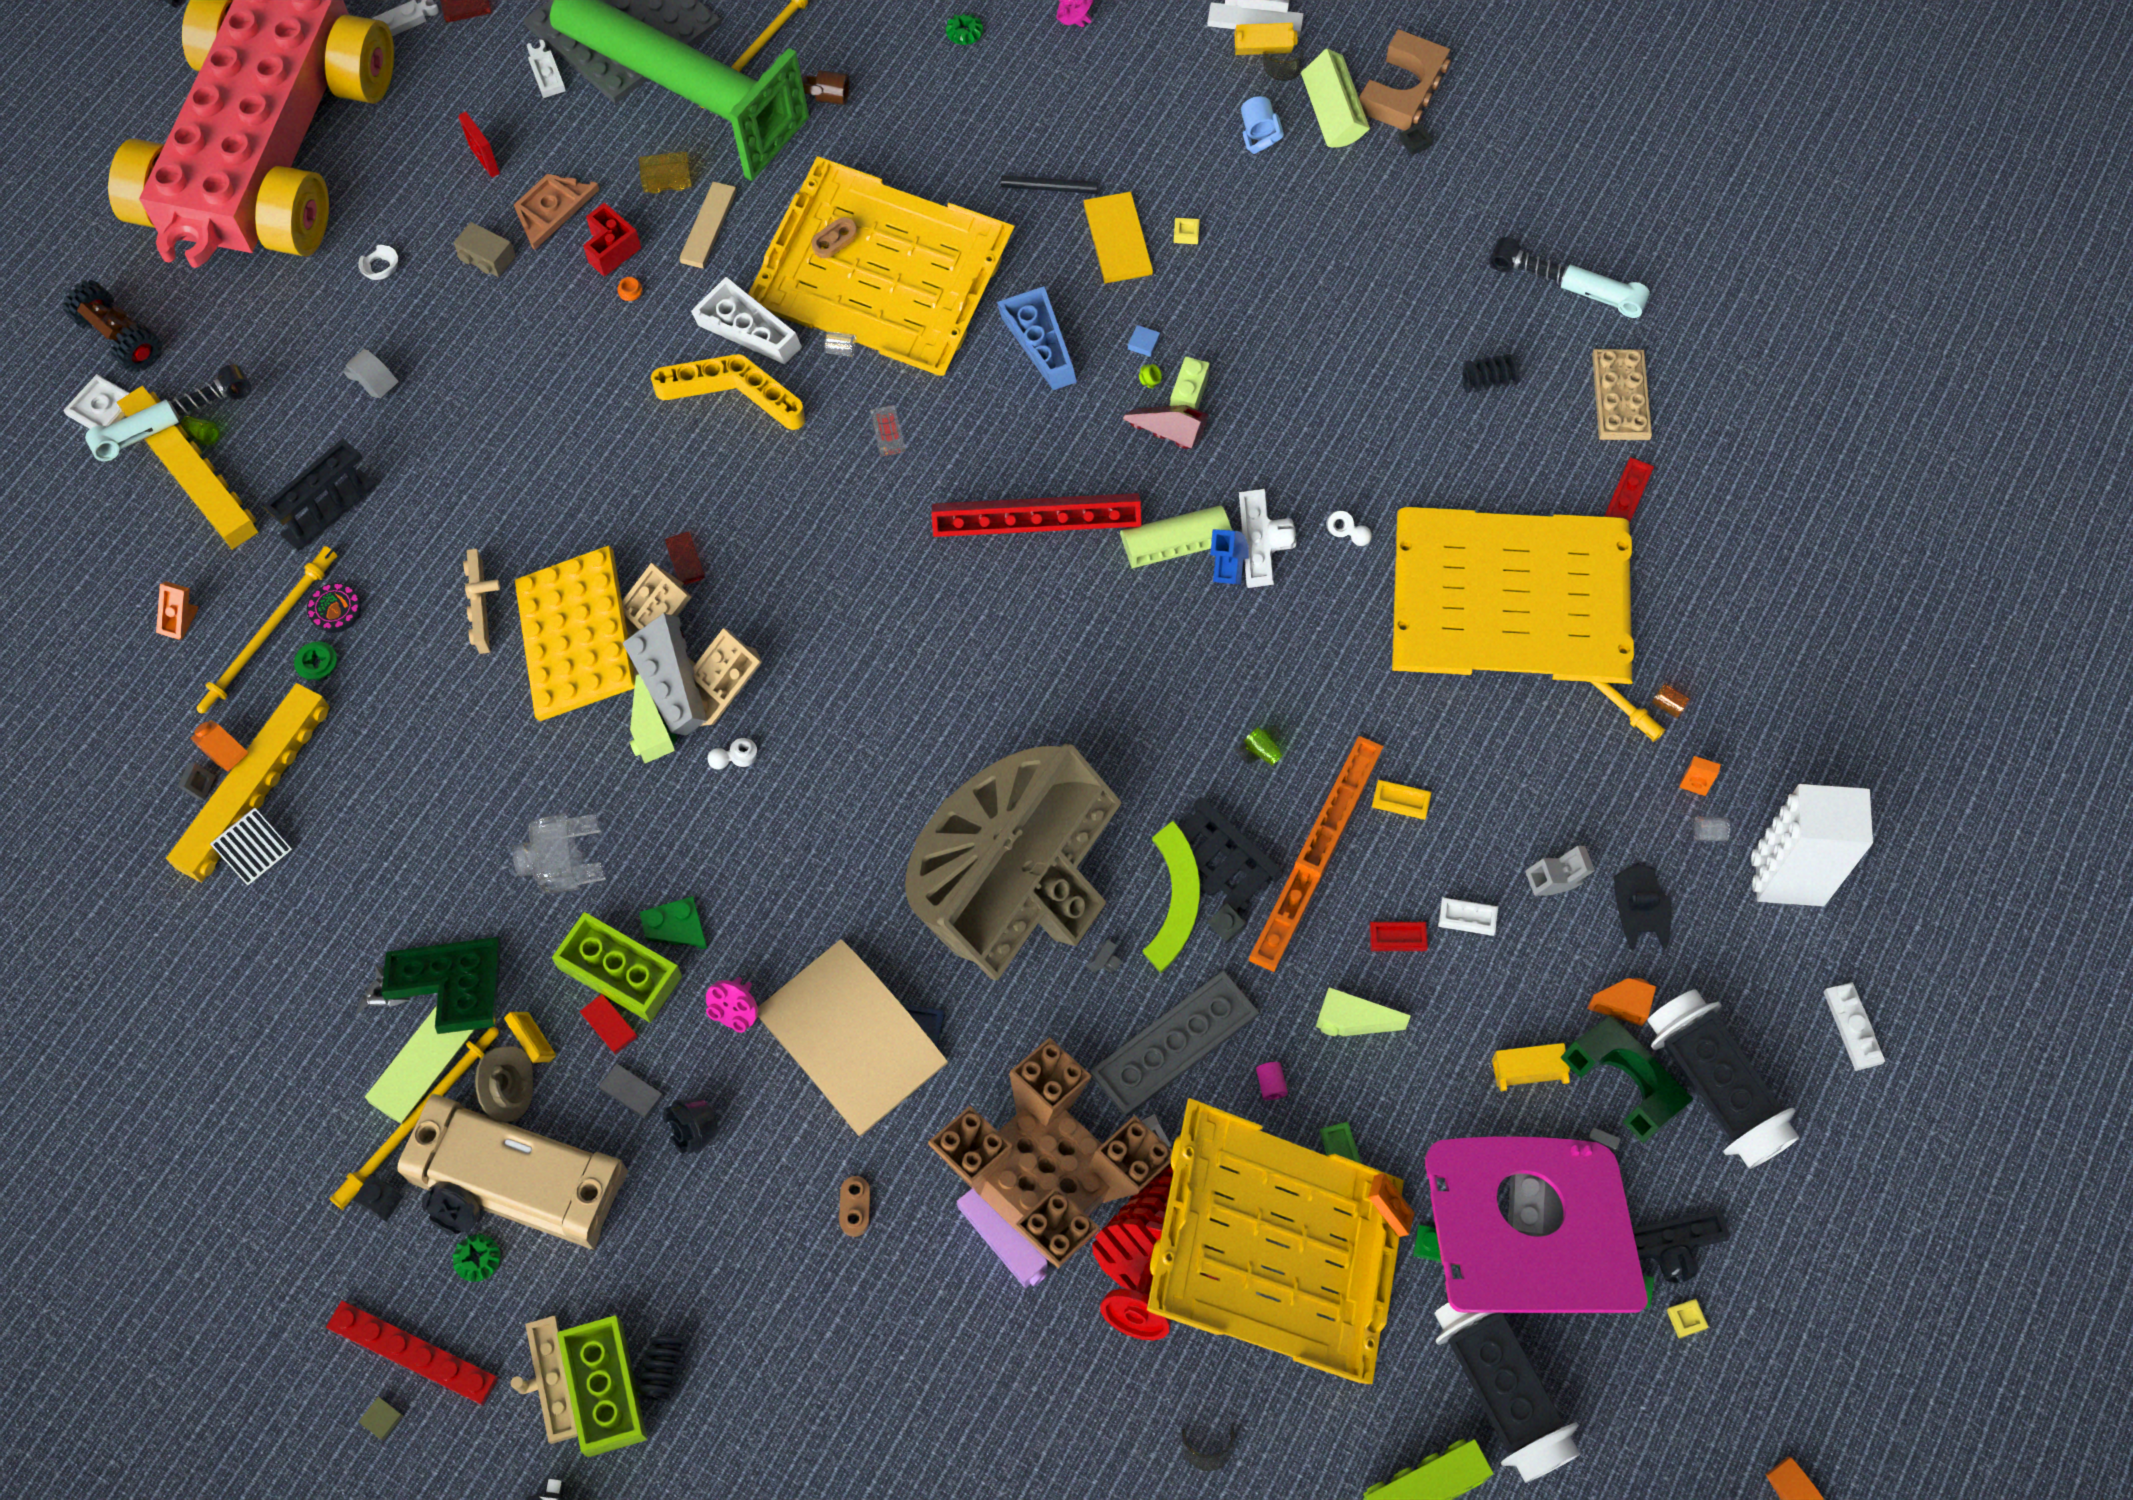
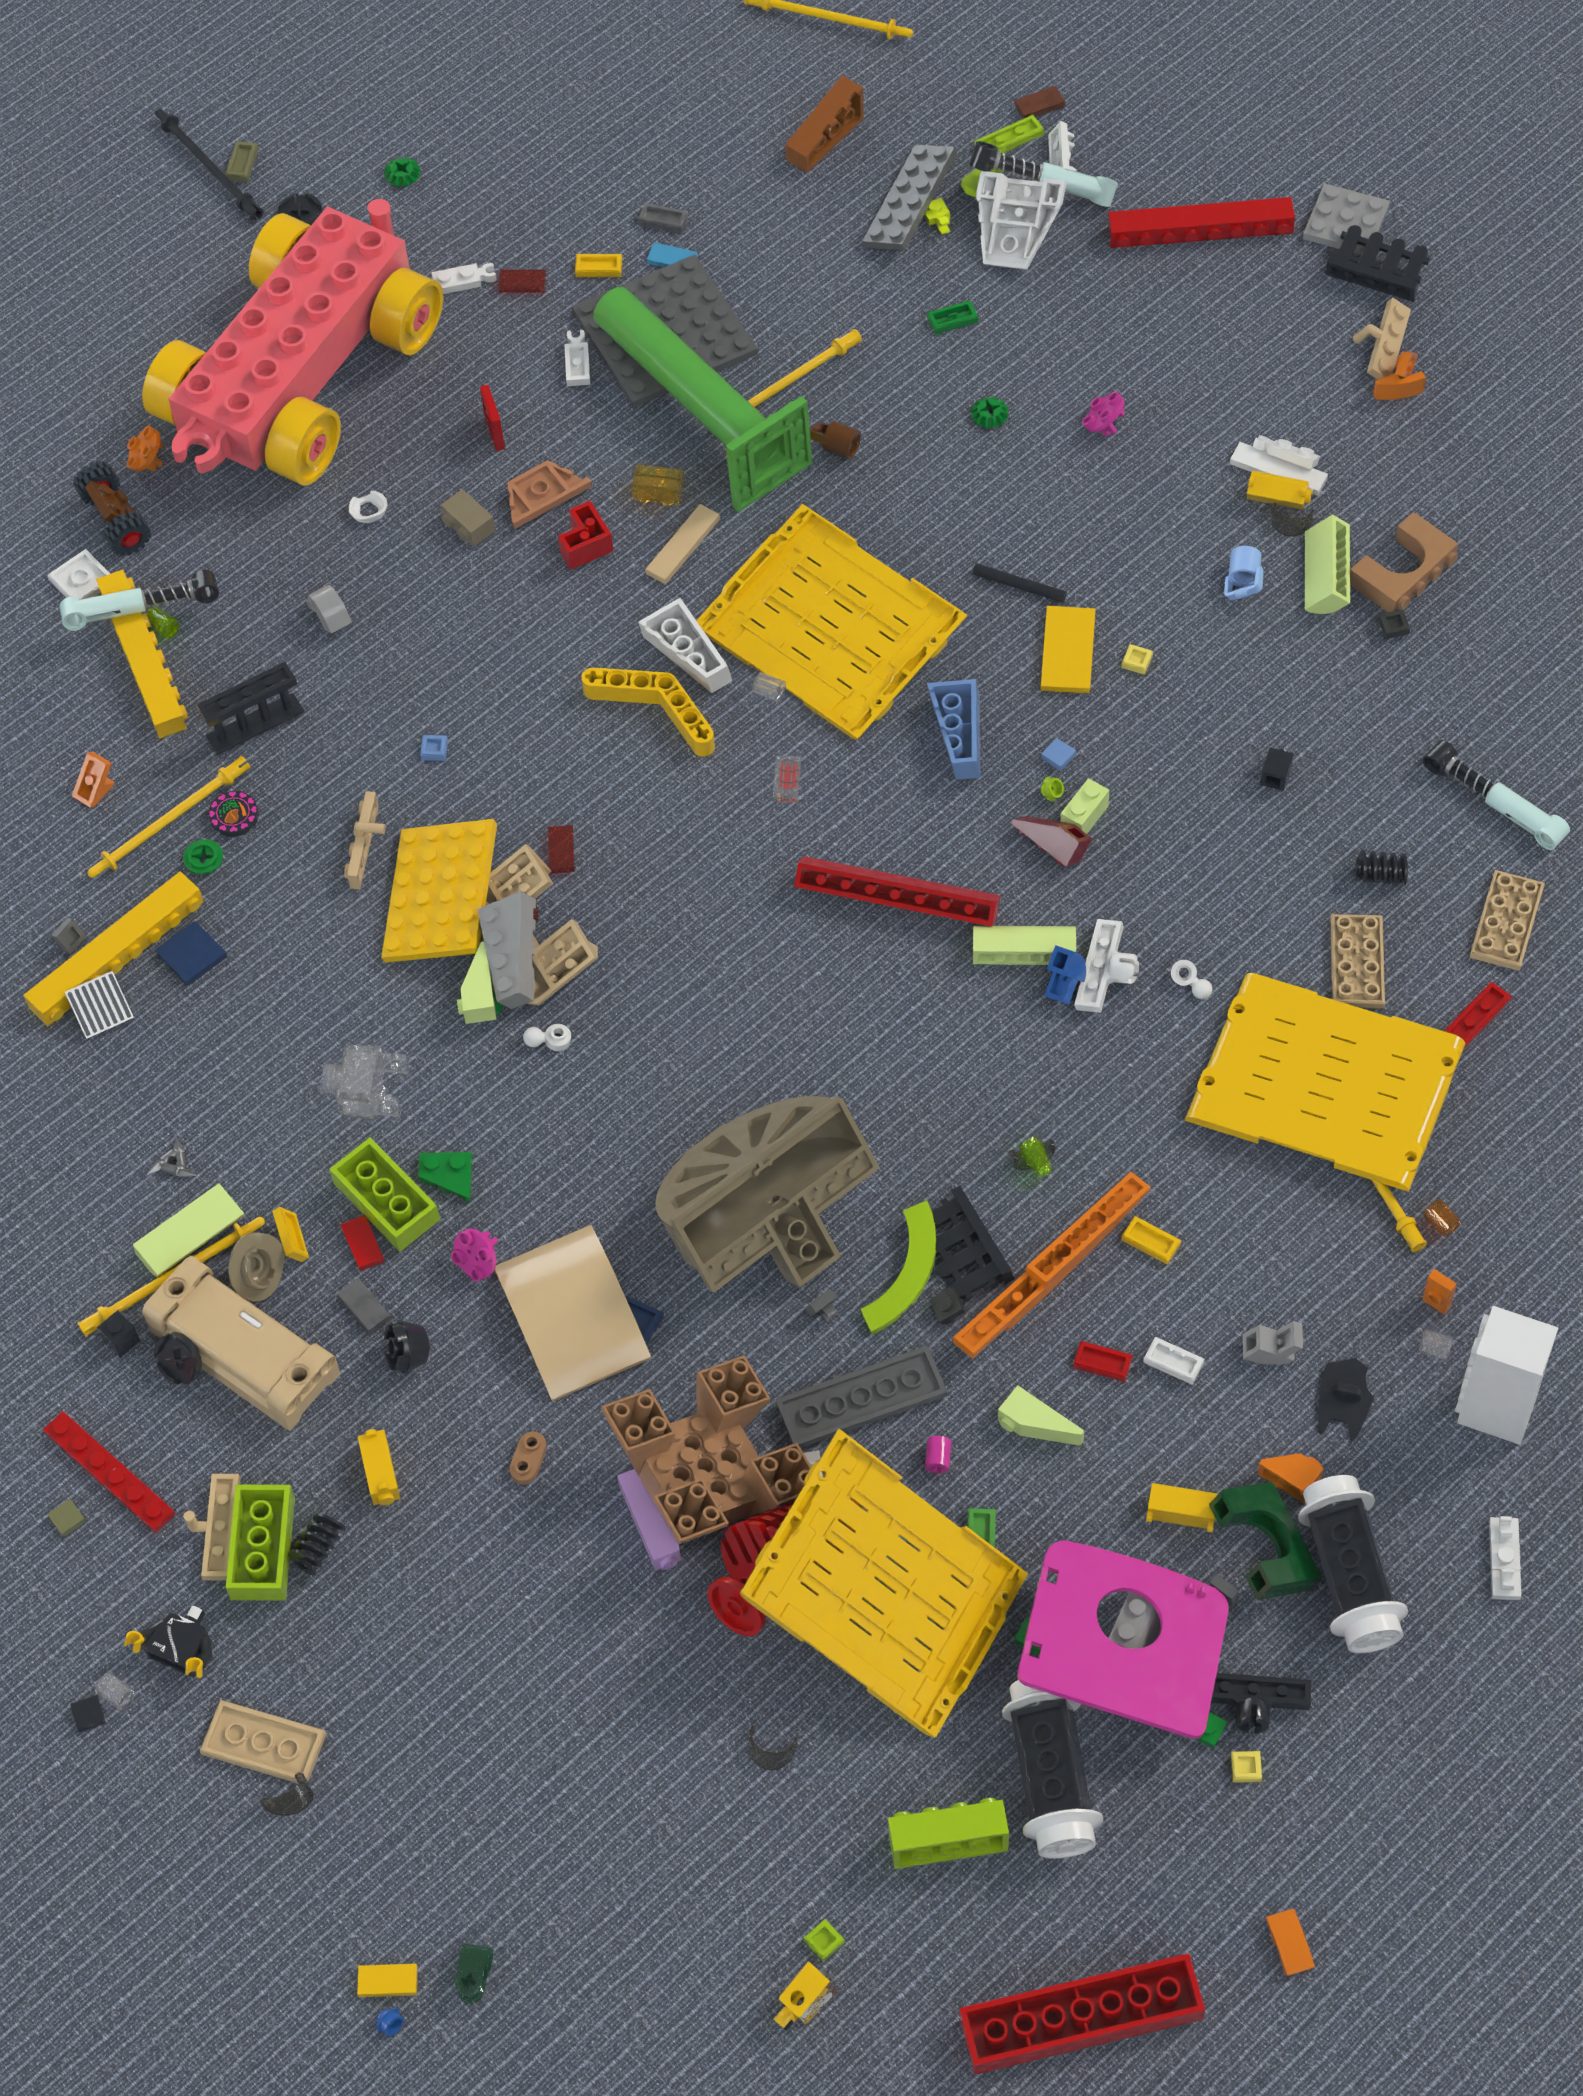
camera: 20 degrees right, 5 degrees down
(129, 259) = (144, 450): none -> orange plate
(218, 745) = (96, 908): orange slope -> none
(333, 765) = (191, 953): none -> dark blue tile
(460, 973) = (245, 1162): dark green plate -> none
(488, 1262) = (195, 1415): green gear -> none
(522, 488) = (434, 747): none -> medium blue tile
(629, 289) = (590, 587): orange plate -> none
(702, 1264) = (379, 1467): none -> yellow brick
(832, 237) = (793, 585): medium nougat plate -> none
(1357, 303) = (1277, 769): none -> black brick
(1391, 1205) = (1005, 1587): orange plate -> none
(1497, 469) = (1357, 960): none -> tan tile

